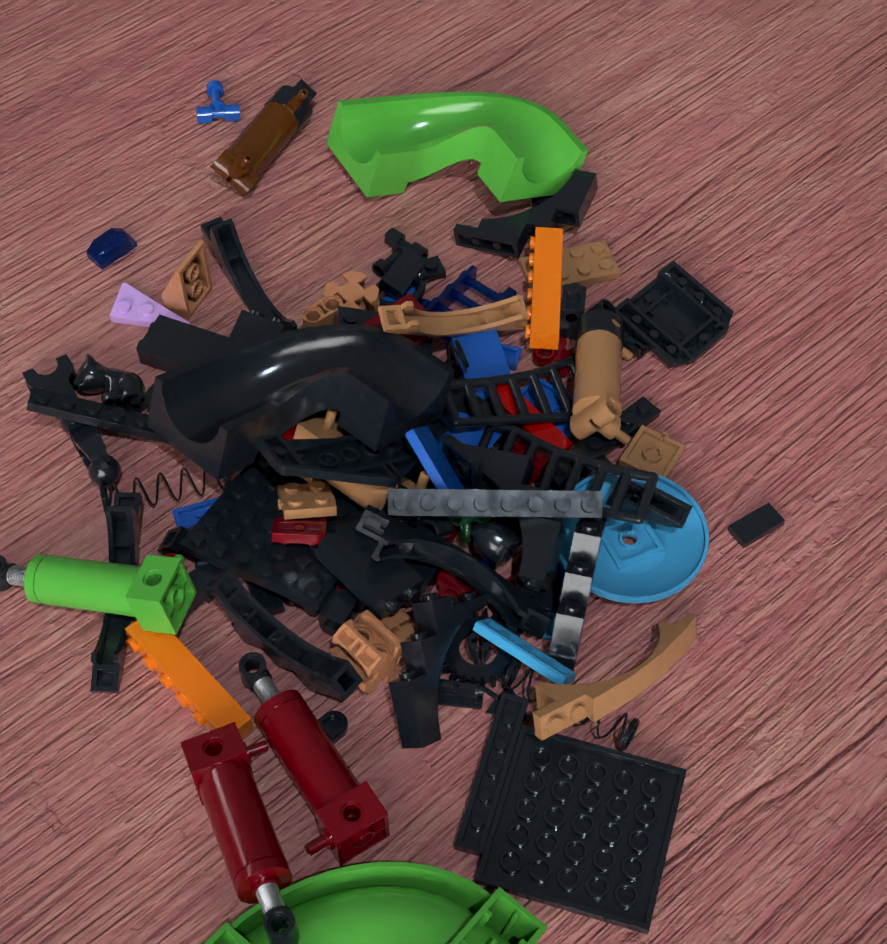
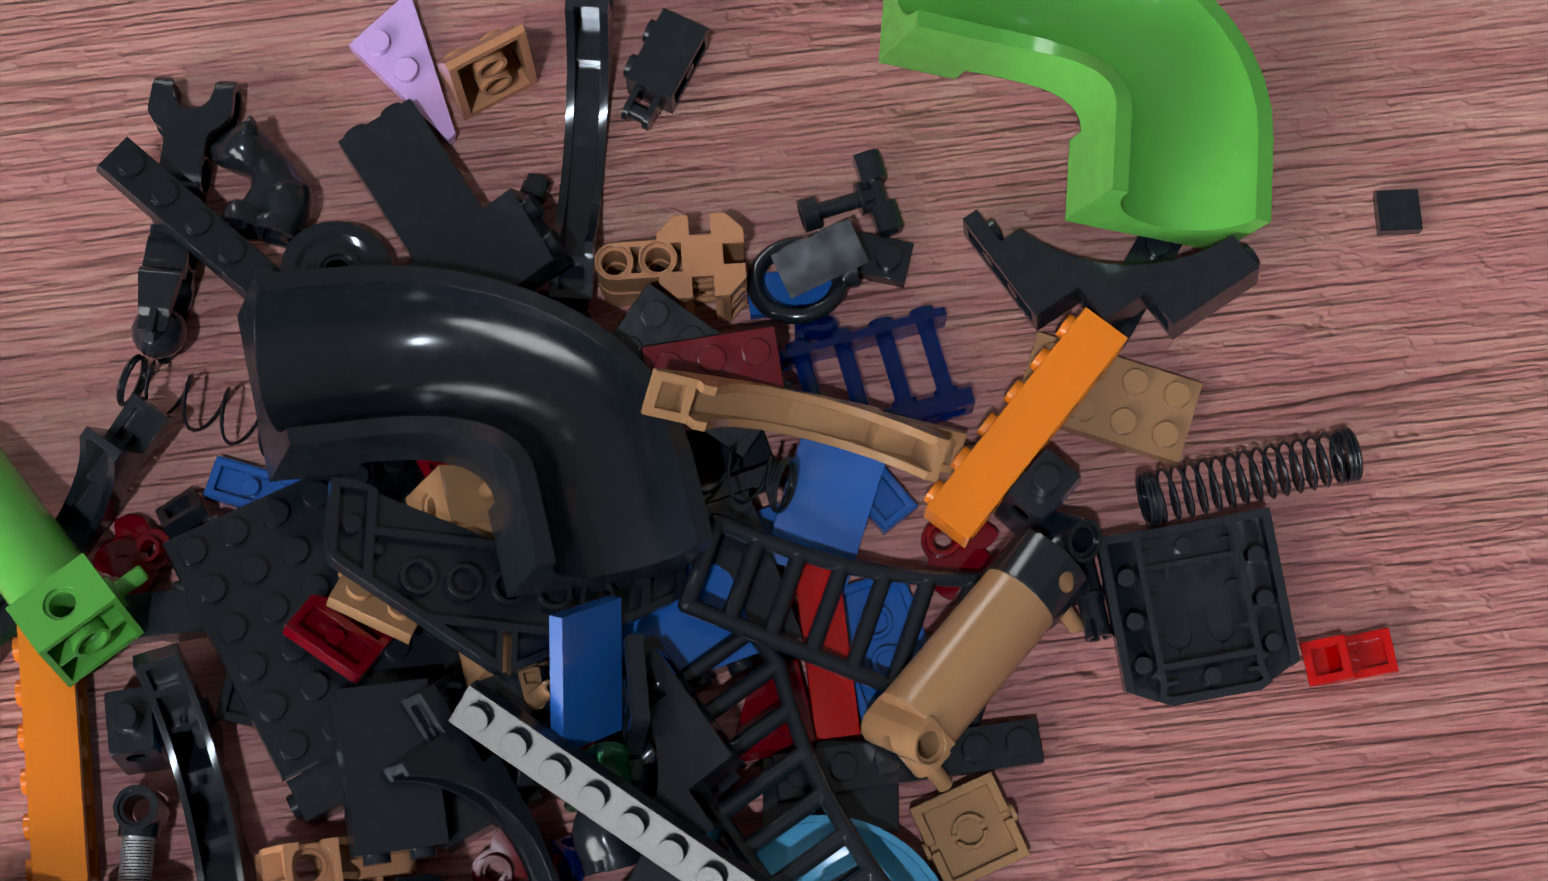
camera: 35 degrees right, 20 degrees up
(218, 634) = (134, 731): none -> black torso
(269, 247) = (663, 66): none -> black brick
(630, 143) = (1397, 212): none -> black tile
(680, 234) = (1153, 502): none -> black piece
(753, 302) = (1349, 657): none -> red slope

